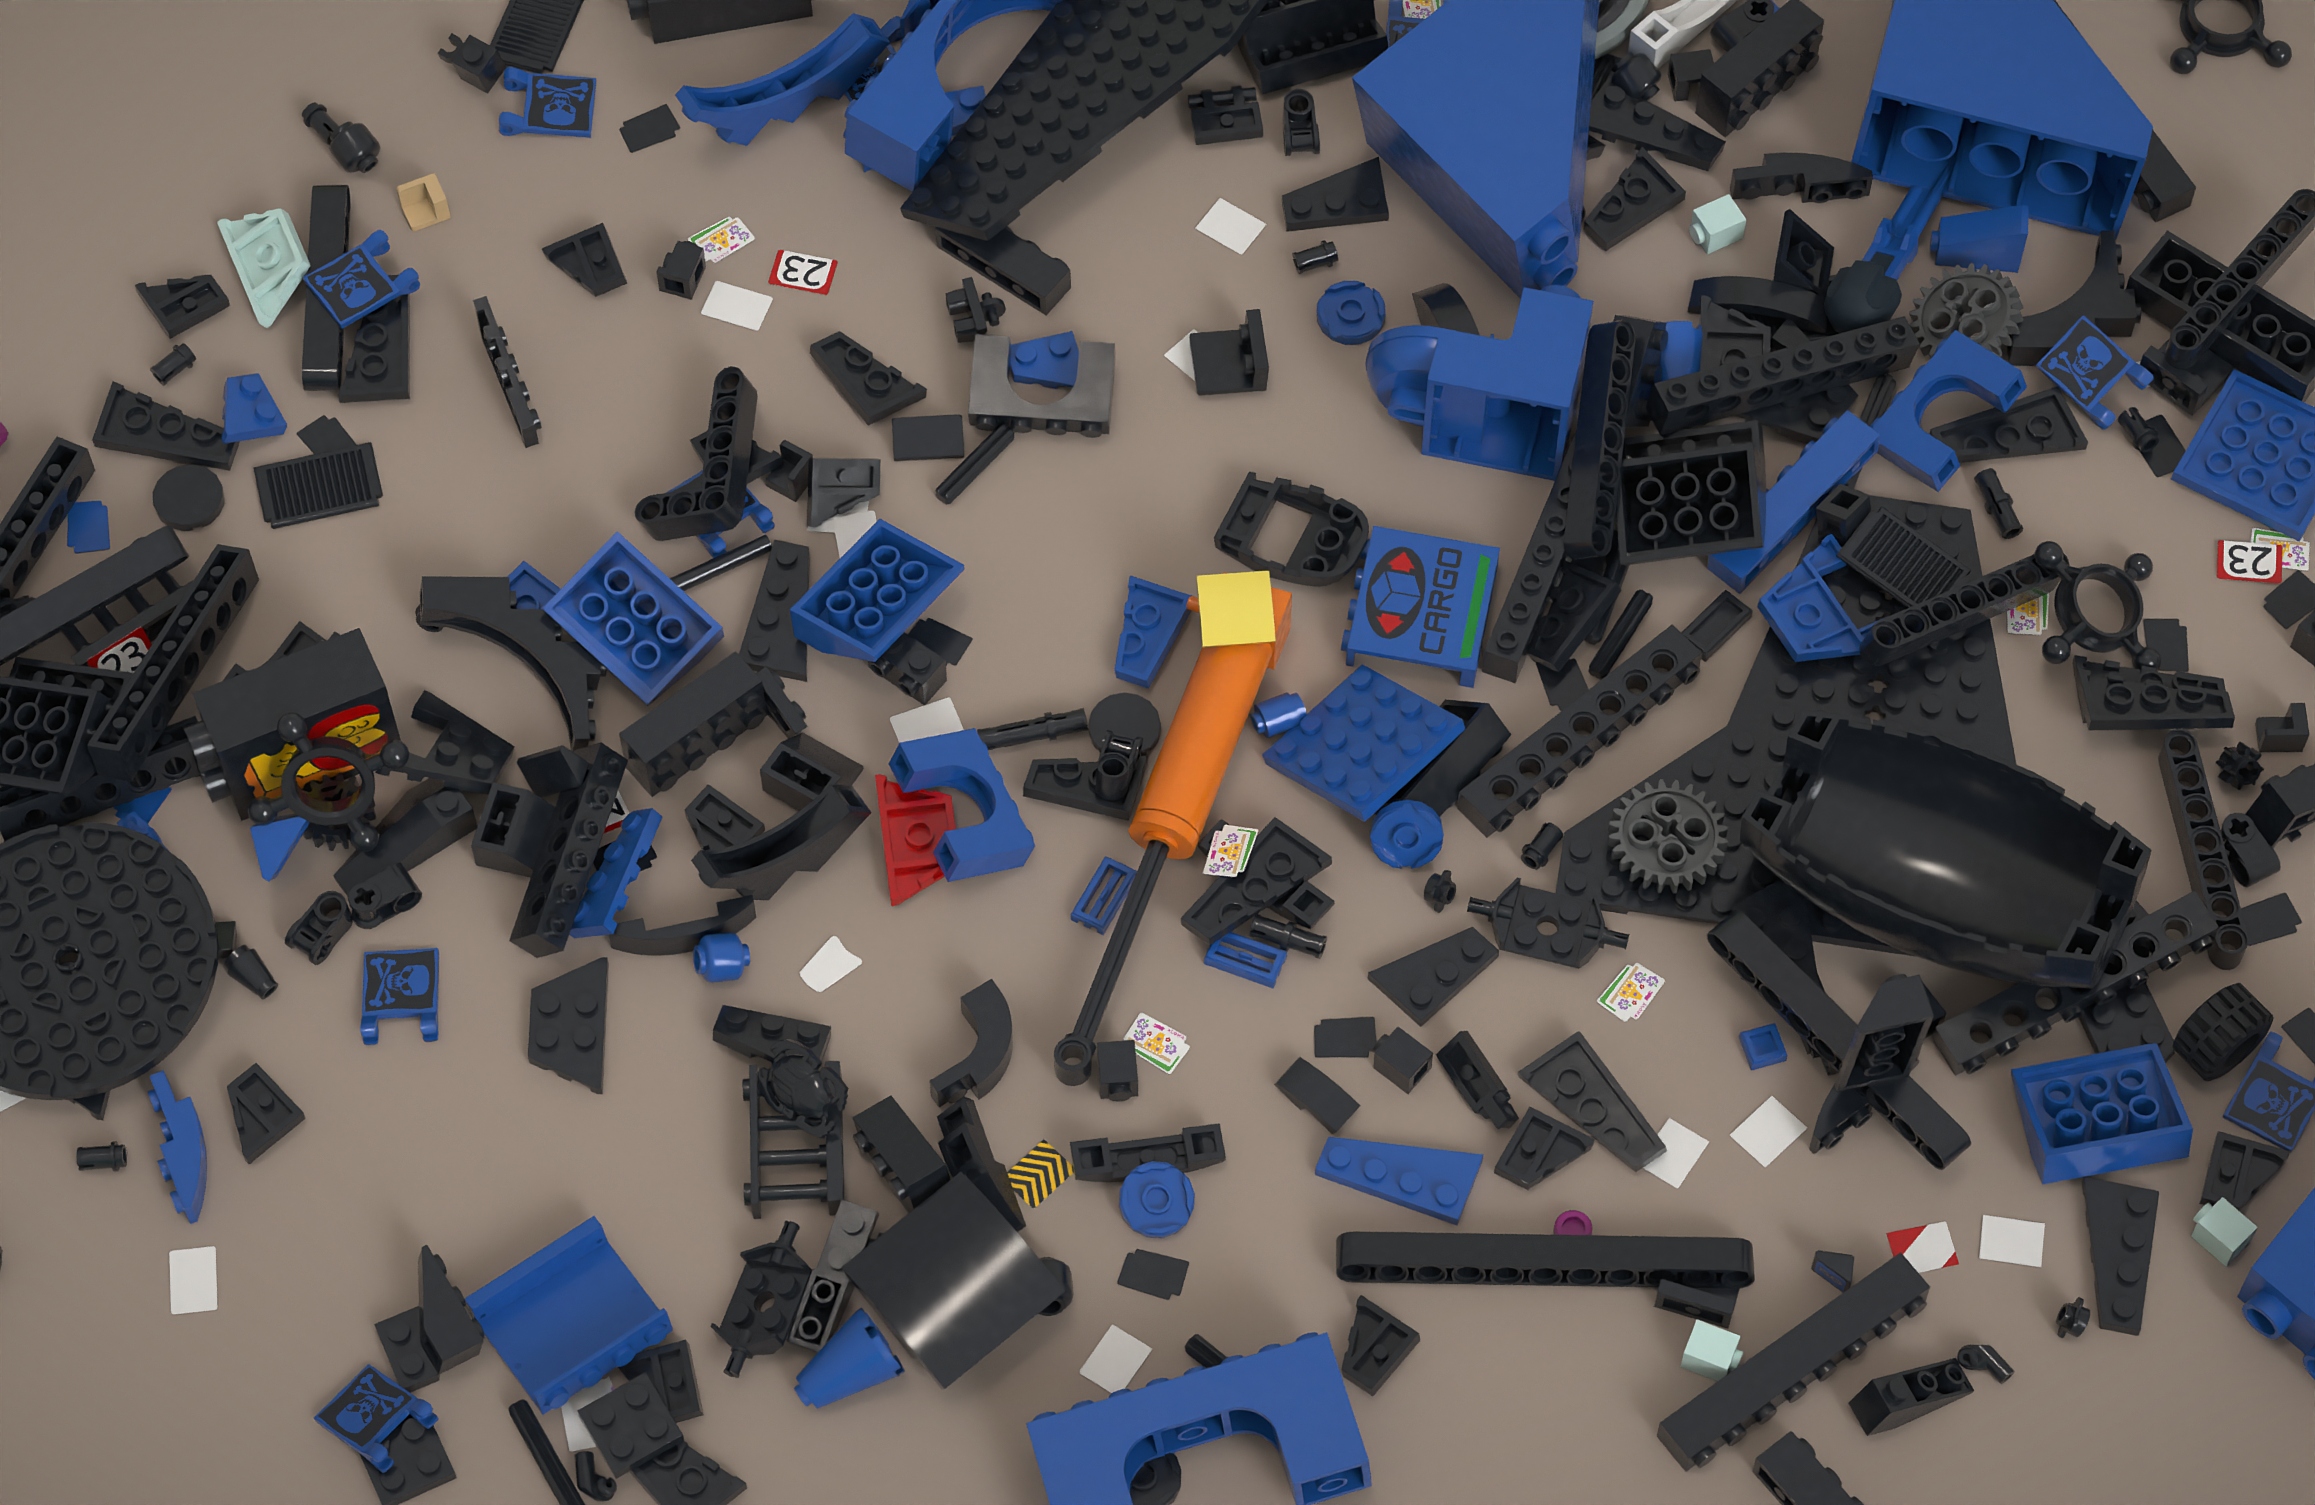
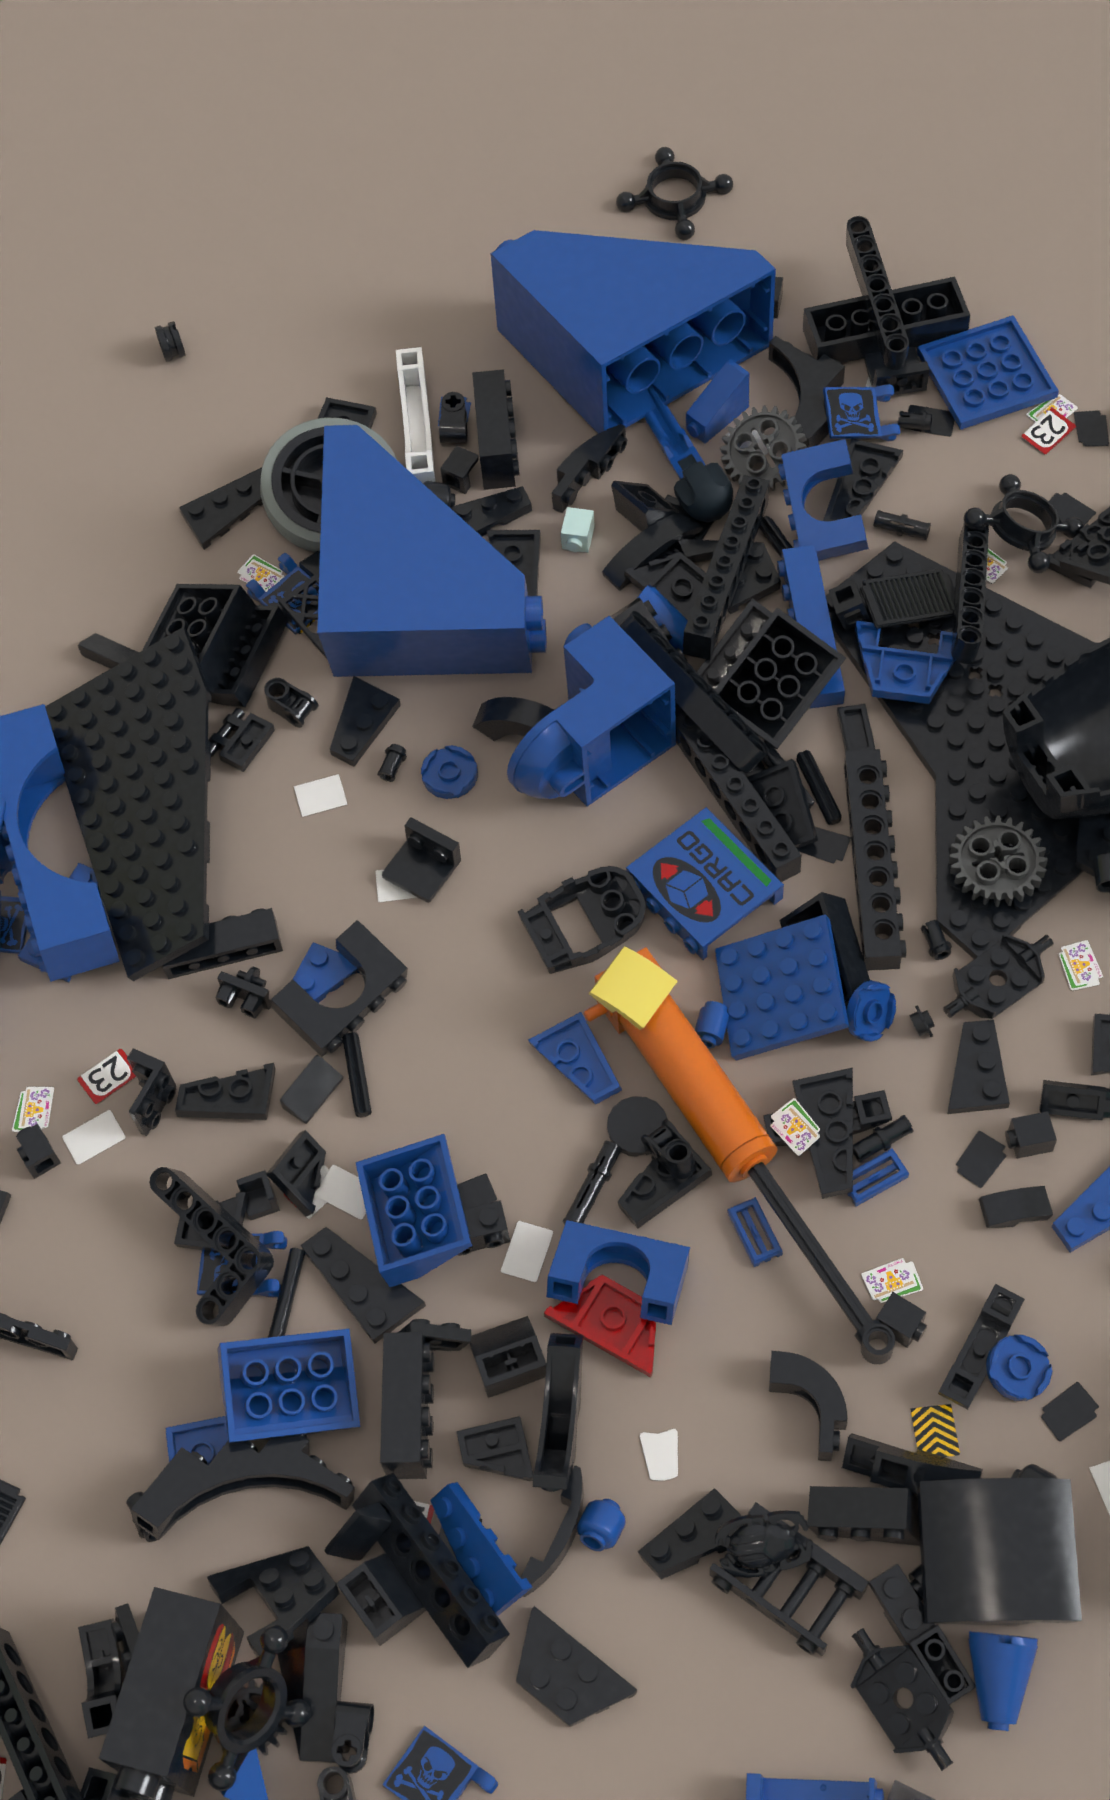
camera: 45 degrees left, 0 degrees up
(808, 314) = (156, 1091): none -> black bracket

